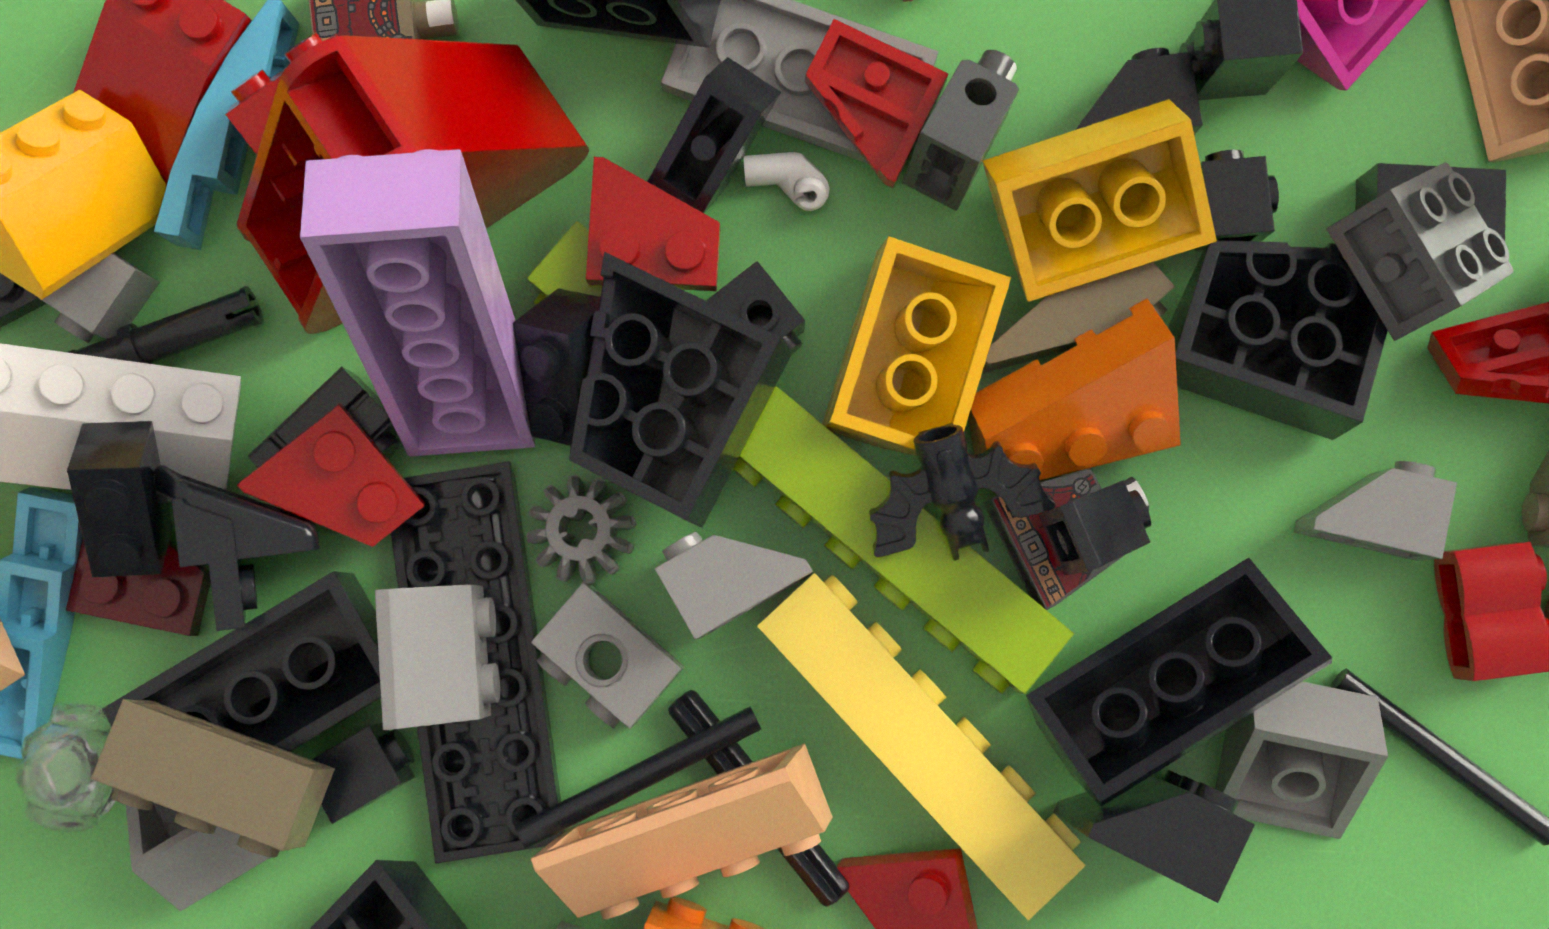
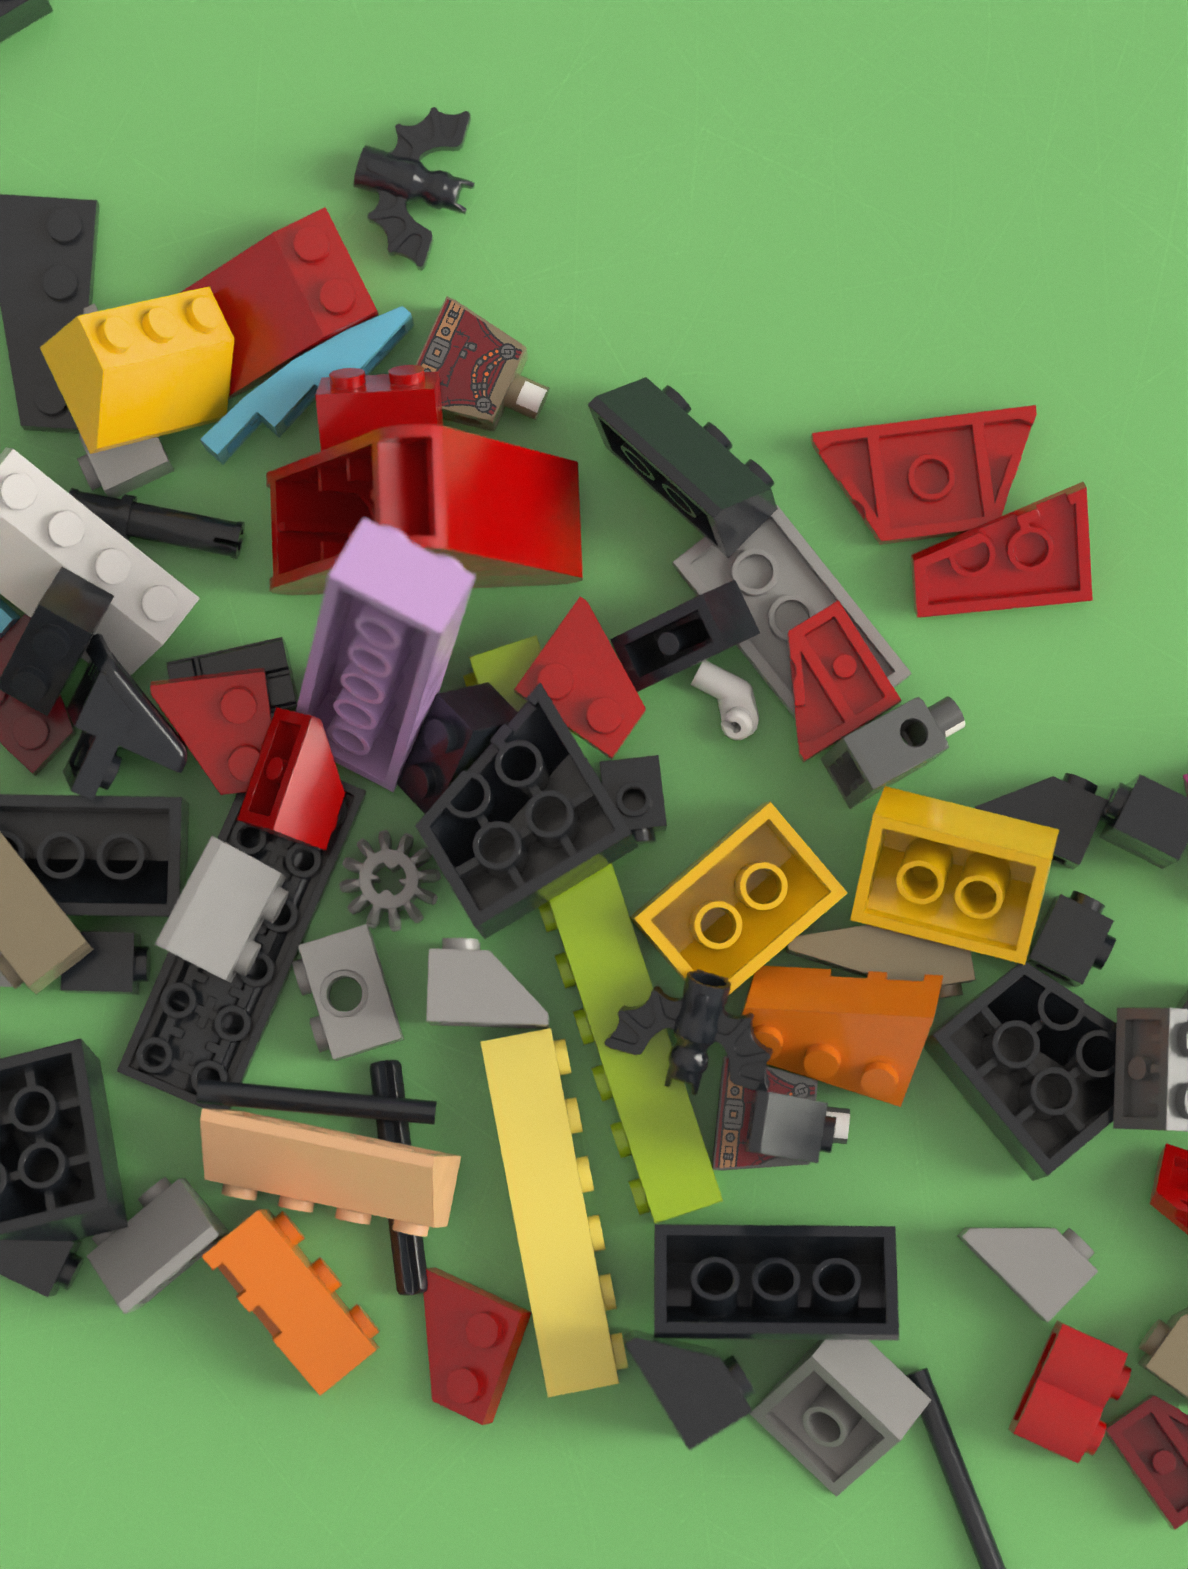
camera: 30 degrees right, 0 degrees up
(433, 491) = (295, 782): none -> red slope

